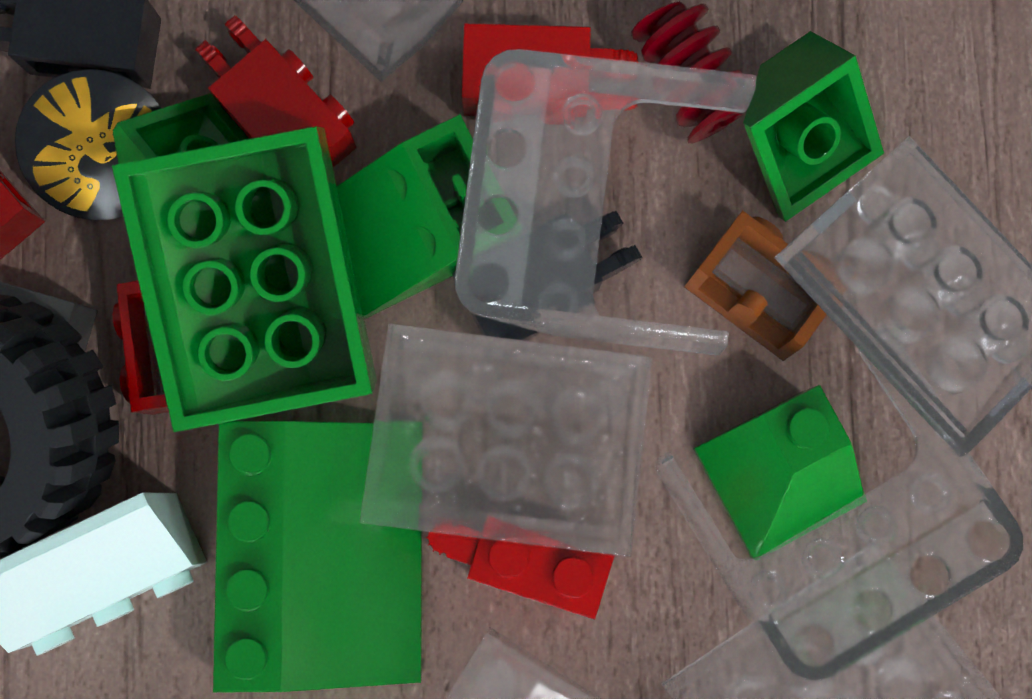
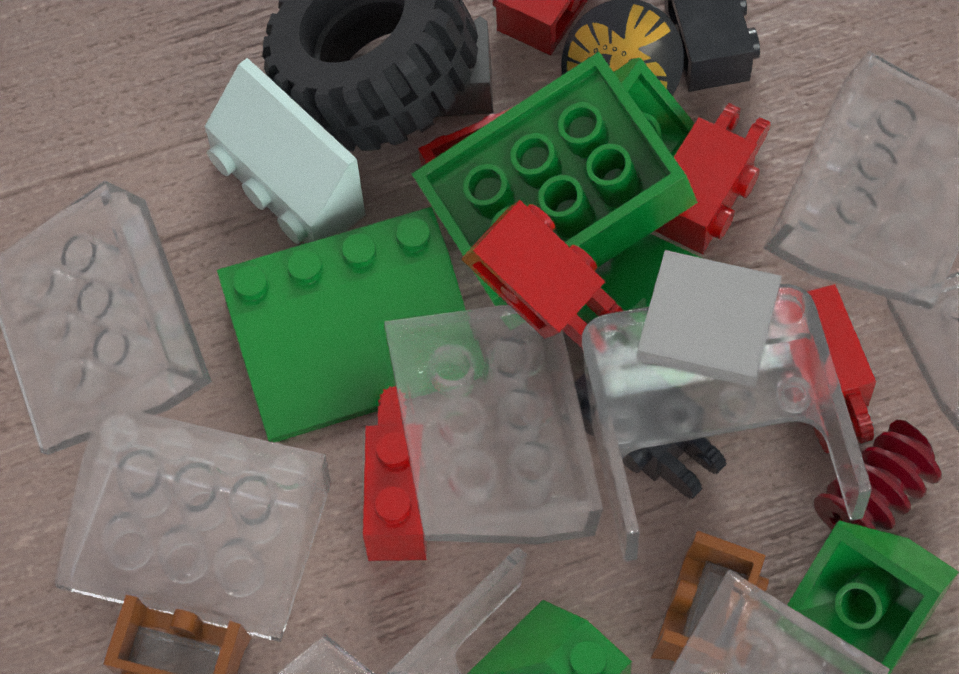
camera: 80 degrees right, 20 degrees down
(375, 334) = (539, 272): none -> red hinge
(505, 166) = (709, 318): none -> light grey tile

